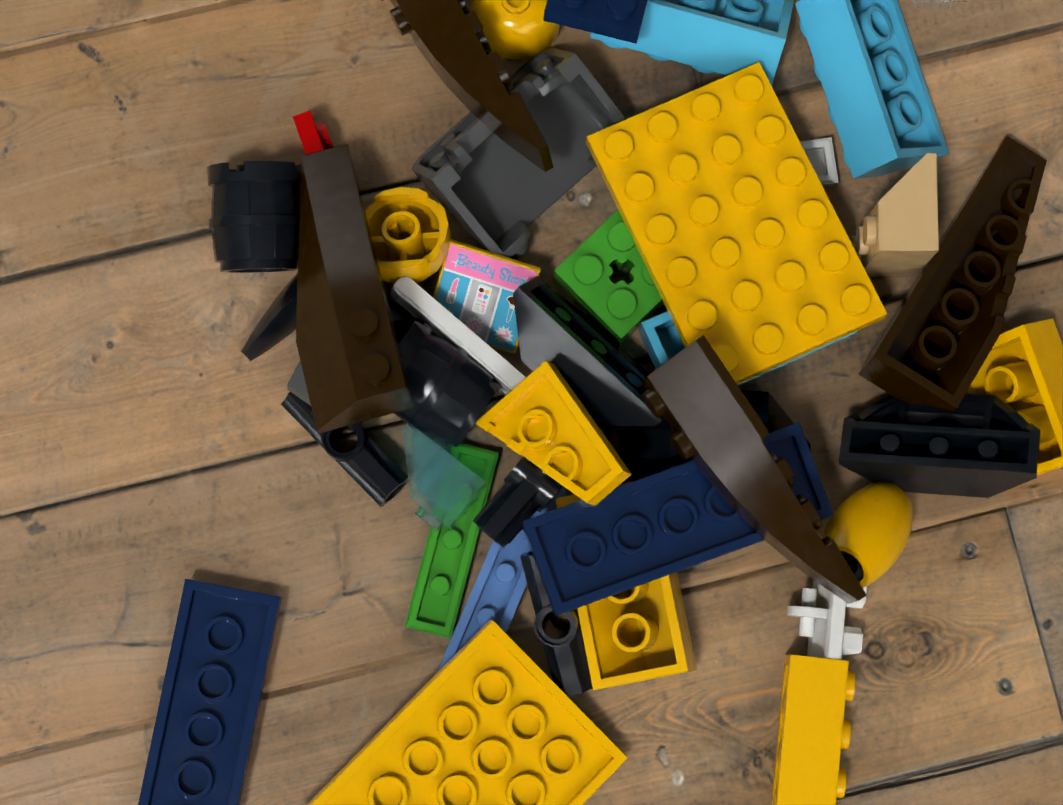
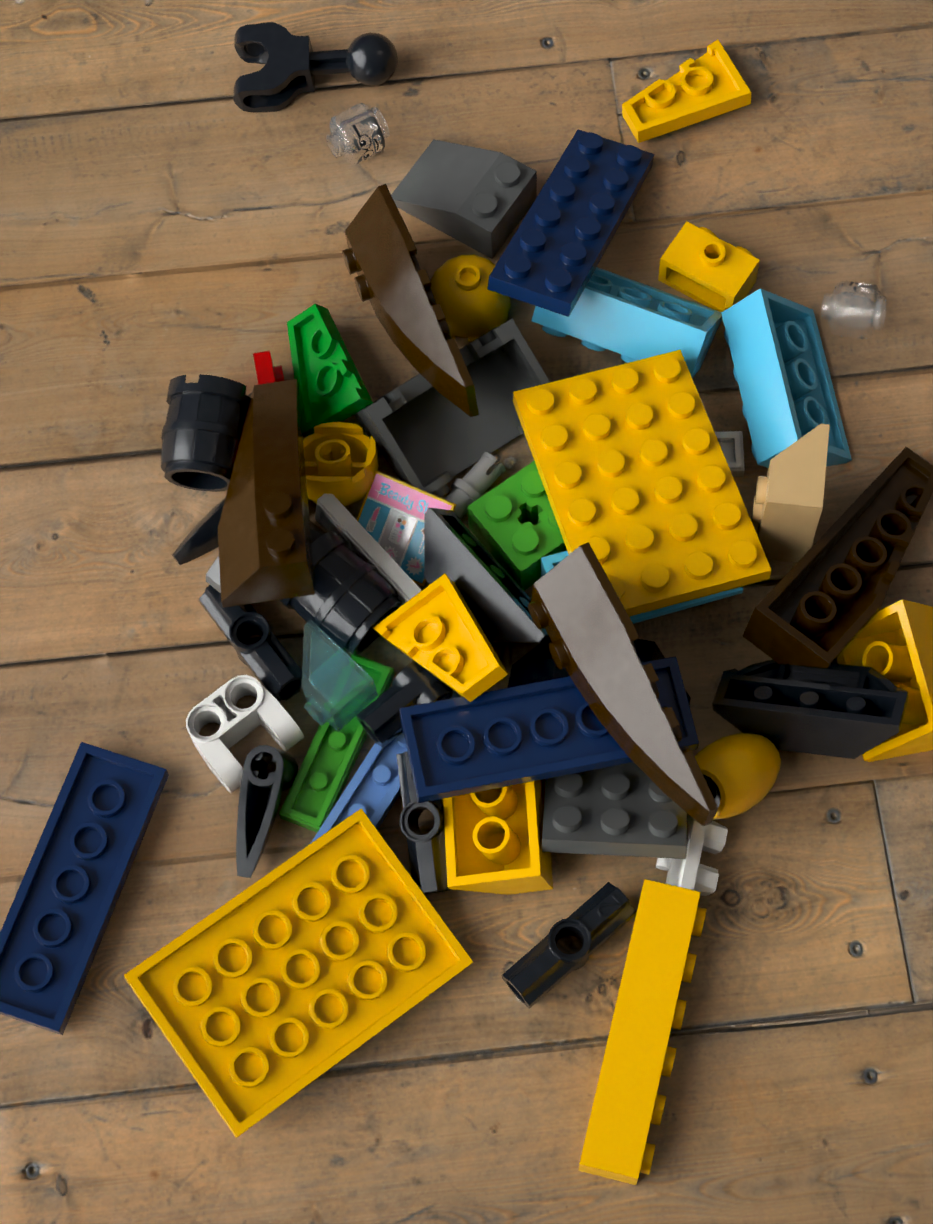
camera: 15 degrees right, 15 degrees down
(342, 536) = (236, 724): none -> white piece
(372, 123) = (324, 370): none -> green wing
(384, 621) = (260, 802): none -> black piece
(549, 242) = (474, 483): none -> light grey pin
(744, 702) = (547, 966): none -> black piece
(750, 597) = (612, 813): none -> dark grey plate

